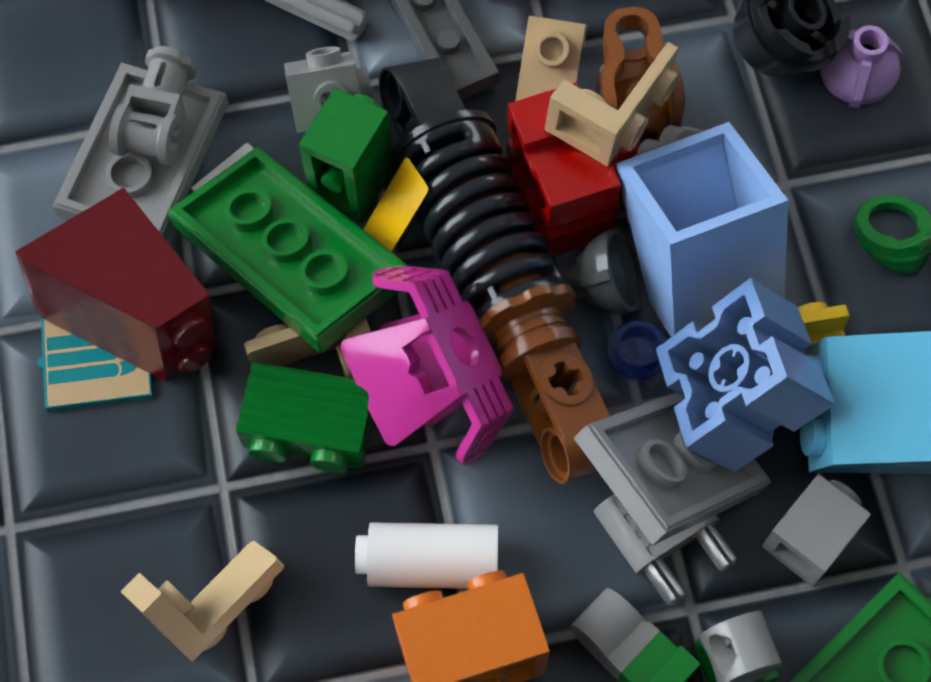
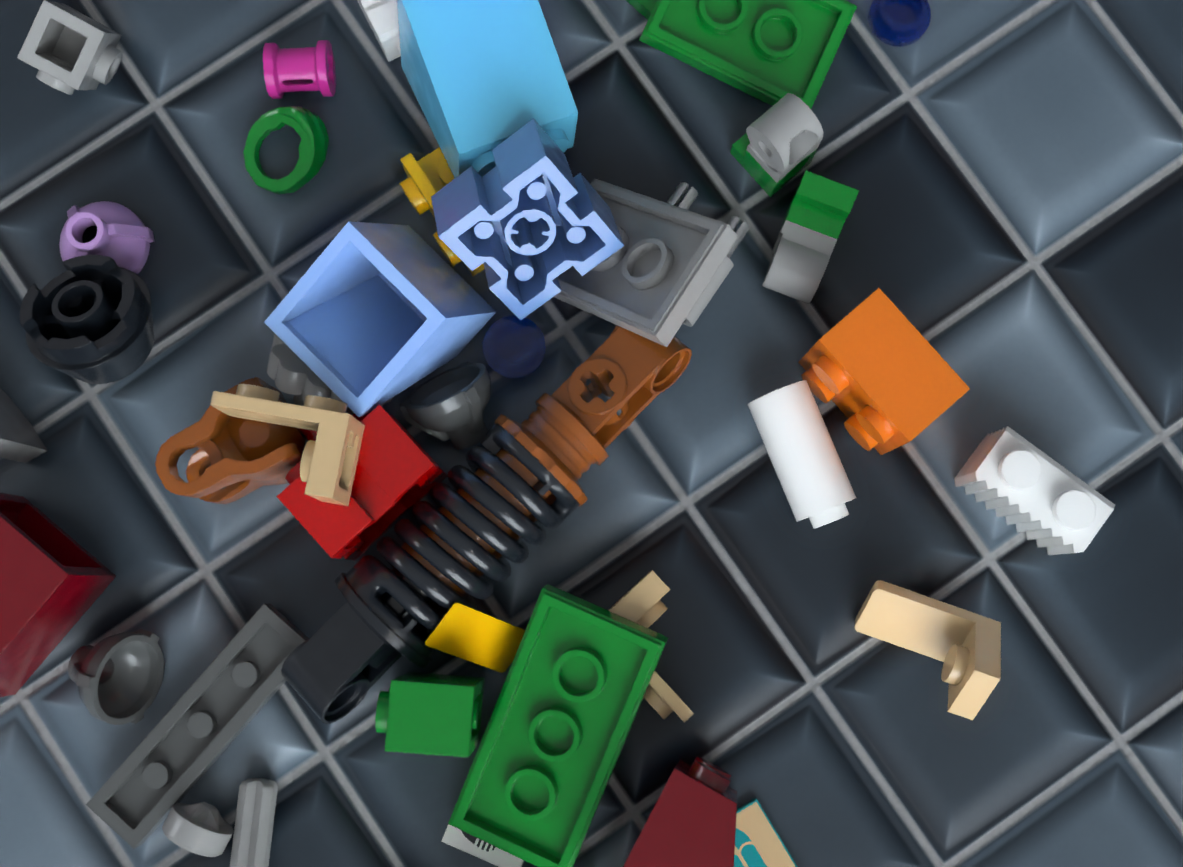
camera: 115 degrees left, 15 degrees up
(304, 417) = (722, 630): green brick -> none
(319, 72) = (360, 779): light grey brick -> none
(429, 364) = (624, 527): dark pink piece -> none
(549, 55) = (237, 553): tan bracket -> none
(817, 528) = (625, 119): light grey brick -> none

